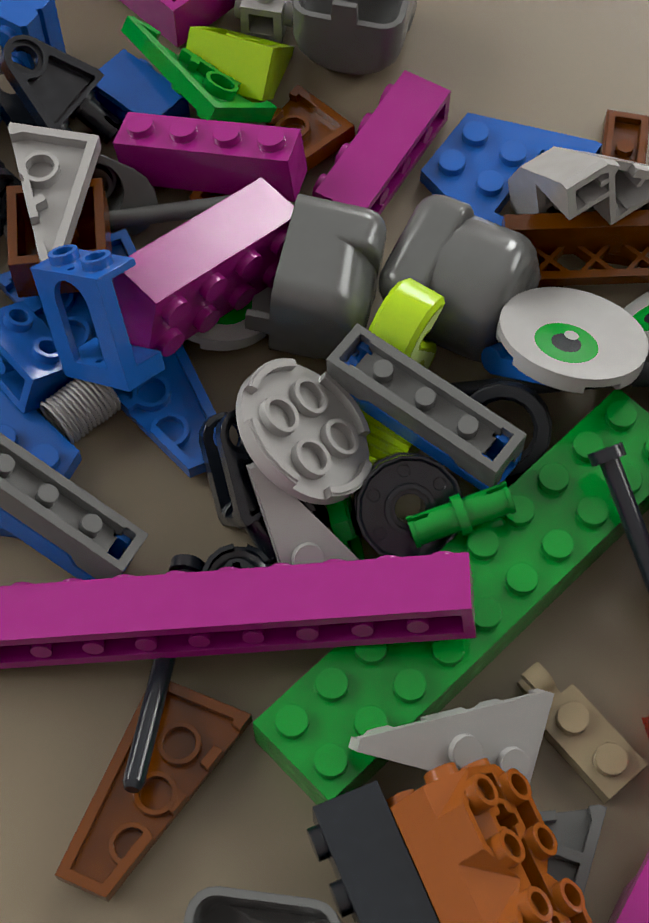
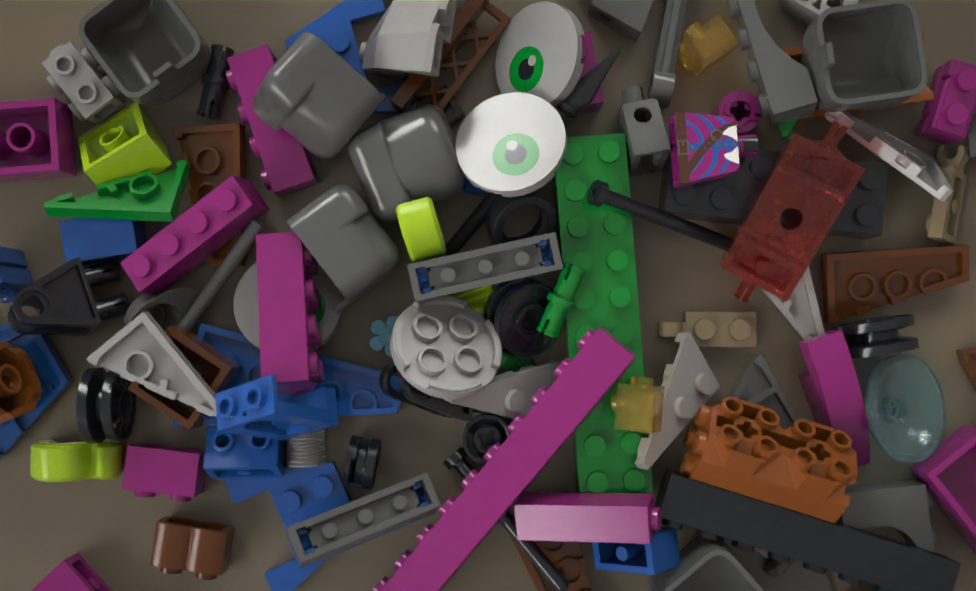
camera: 50 degrees left, 25 degrees up
(107, 472) = (364, 469): none -> black wheel
(243, 731) = (587, 517): none -> magenta brick
(250, 834) = (639, 558): none -> blue brick
(367, 88) = (214, 82): none -> black pin
(422, 677) = (638, 405): none -> clear yellow brick
(443, 136) = (315, 97): none -> dark grey piece

